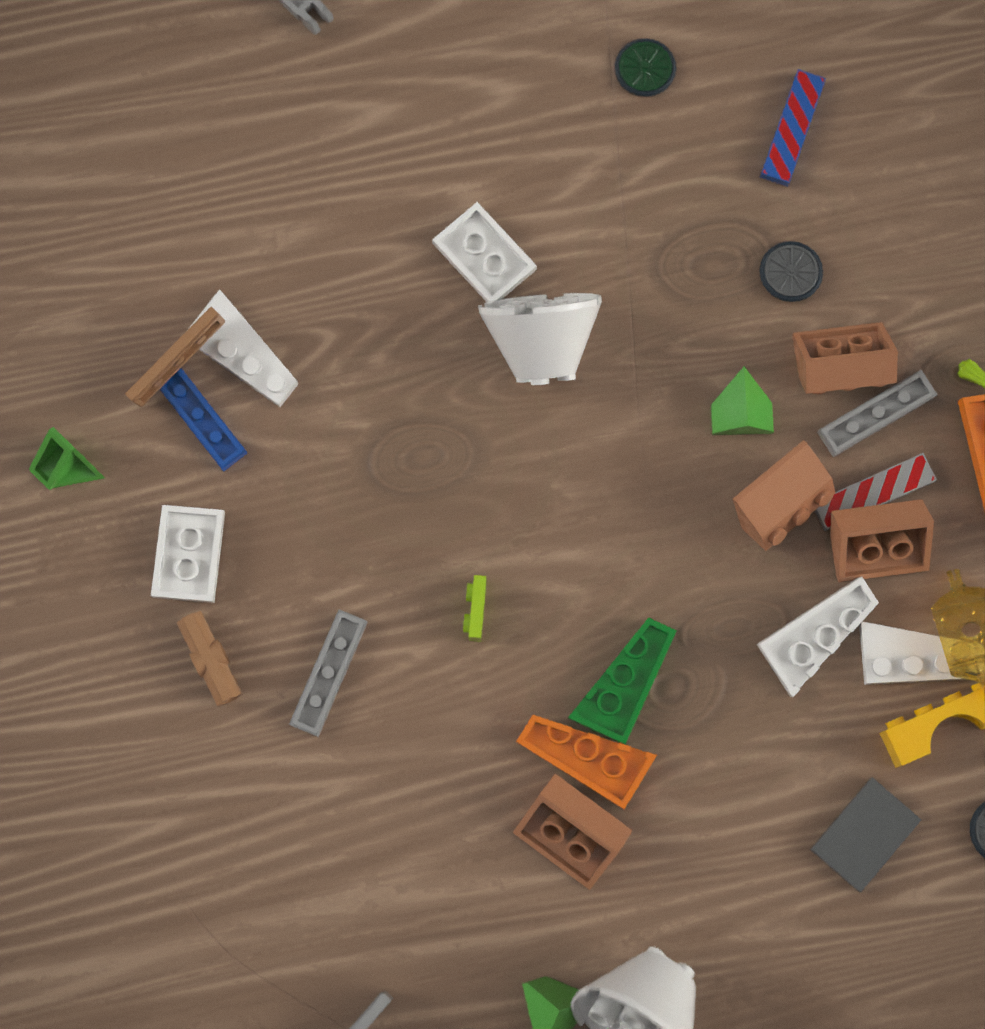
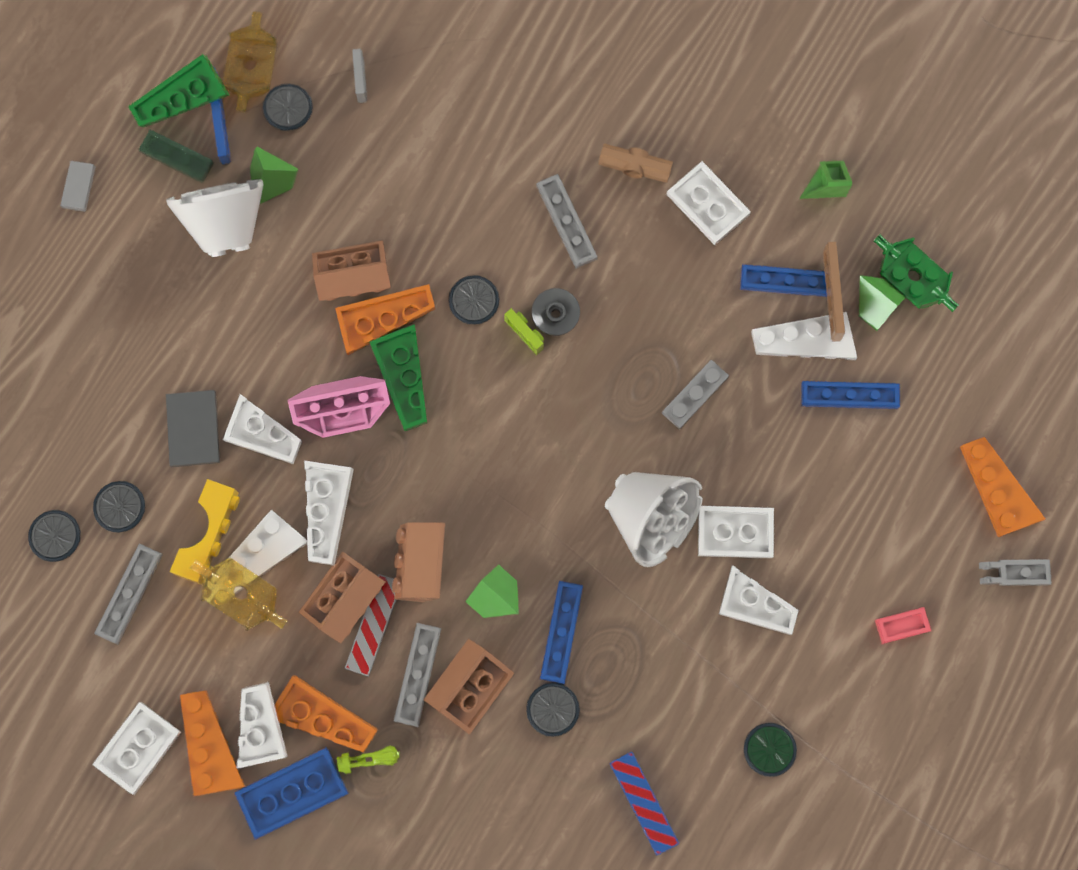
camera: 130 degrees right, 0 degrees up
(80, 284) = (906, 257): none -> green plate
(143, 314) = (877, 300): none -> bright green slope
(231, 69) = (1000, 491): none -> orange wing
(260, 267) = (850, 395): none -> blue tile
(388, 402) = (695, 394): none -> light grey plate
(425, 581) = (555, 300): none -> dark grey dish
(431, 50) = (903, 625): none -> coral tile
(488, 688) = (473, 299): none -> dark grey wheel
(533, 182) = (756, 605): none -> white wing
(711, 712) = (340, 406): none -> bright pink wedge
(717, 325) = (561, 632): none -> blue tile
(807, 763) = (260, 433): none -> white wing

